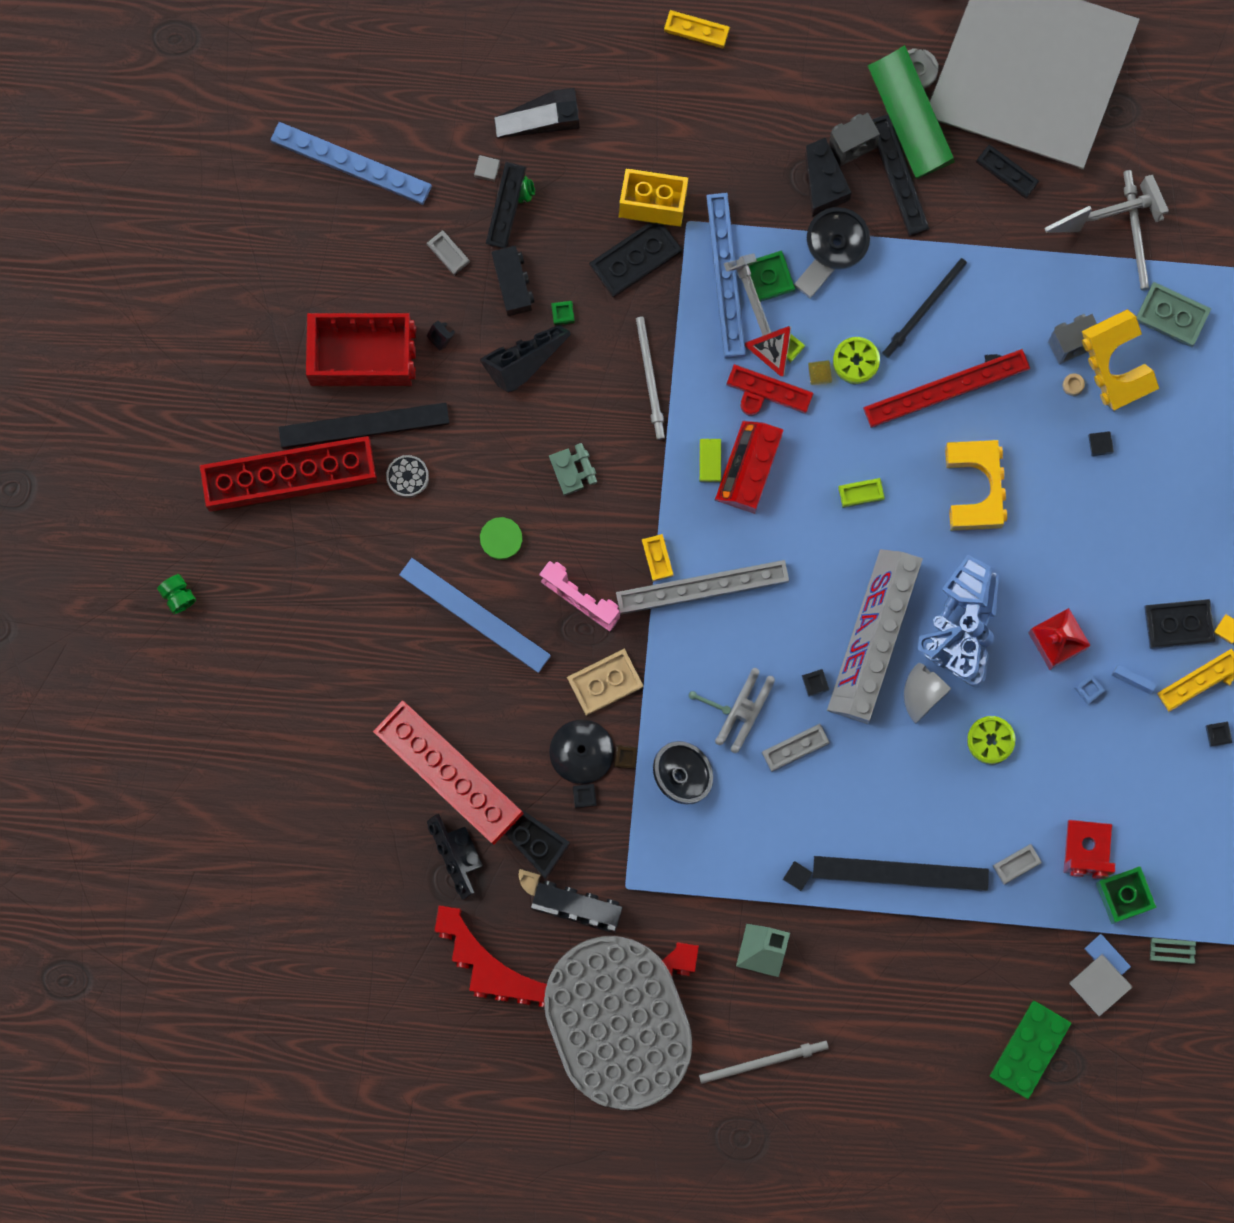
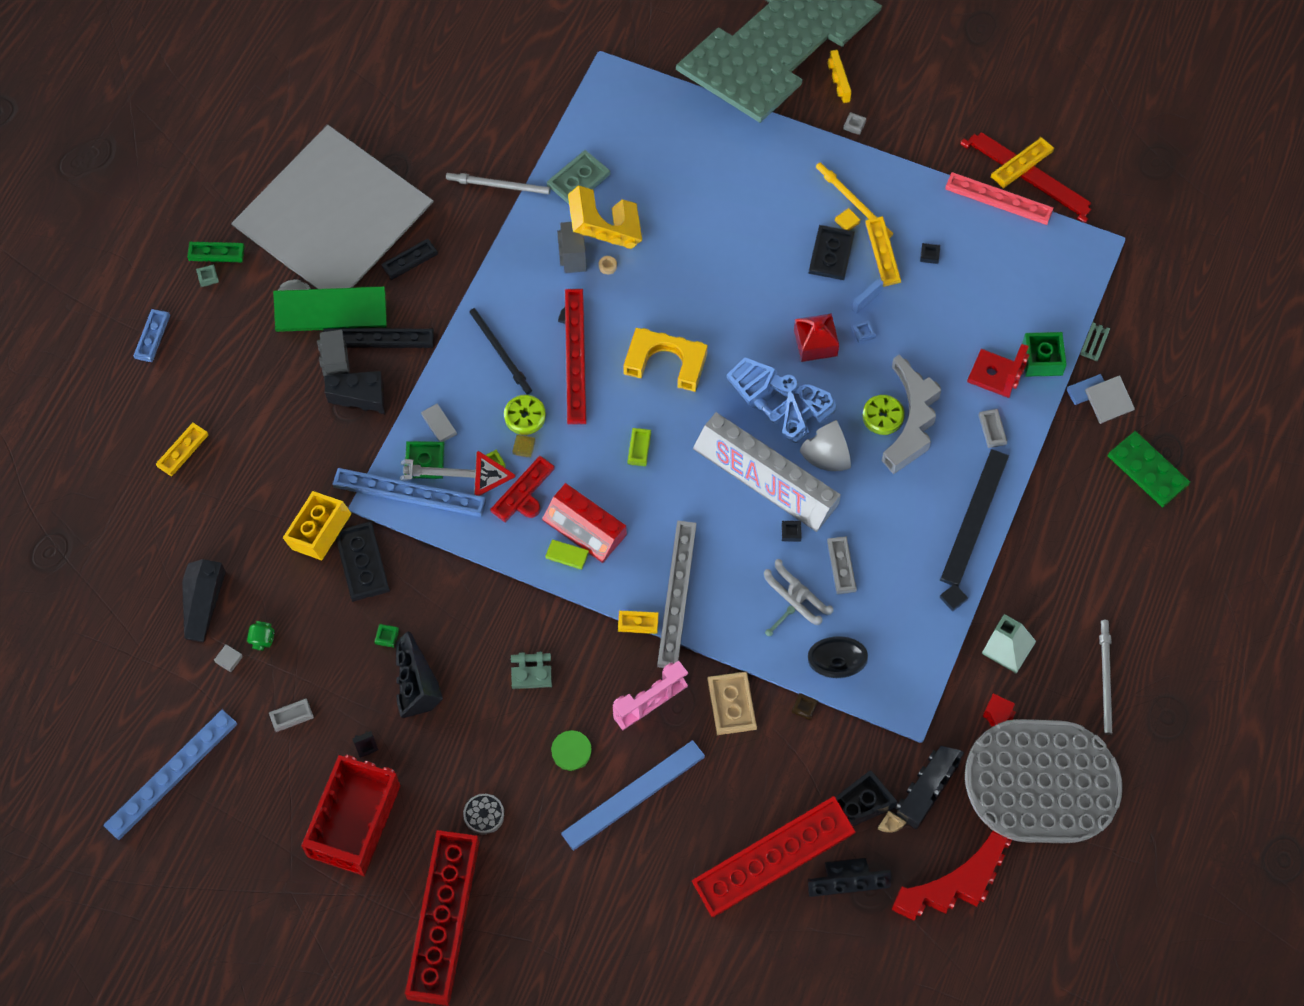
camera: 75 degrees left, 15 degrees down
(364, 425) = (421, 839): black tile -> none
(506, 205) = (271, 647): black tile -> none
(512, 280) = (341, 666): black brick -> none
(584, 796) = (828, 752): black tile -> none
(589, 765) = (785, 754): black dish -> none
(656, 416) = (511, 587): light grey bar -> none
(844, 227) = (413, 384): black dish -> none
(999, 780) = (913, 439): none -> light grey arch
(1100, 443) = (664, 260): black tile -> none
(1151, 198) = (476, 164): light grey piece -> none

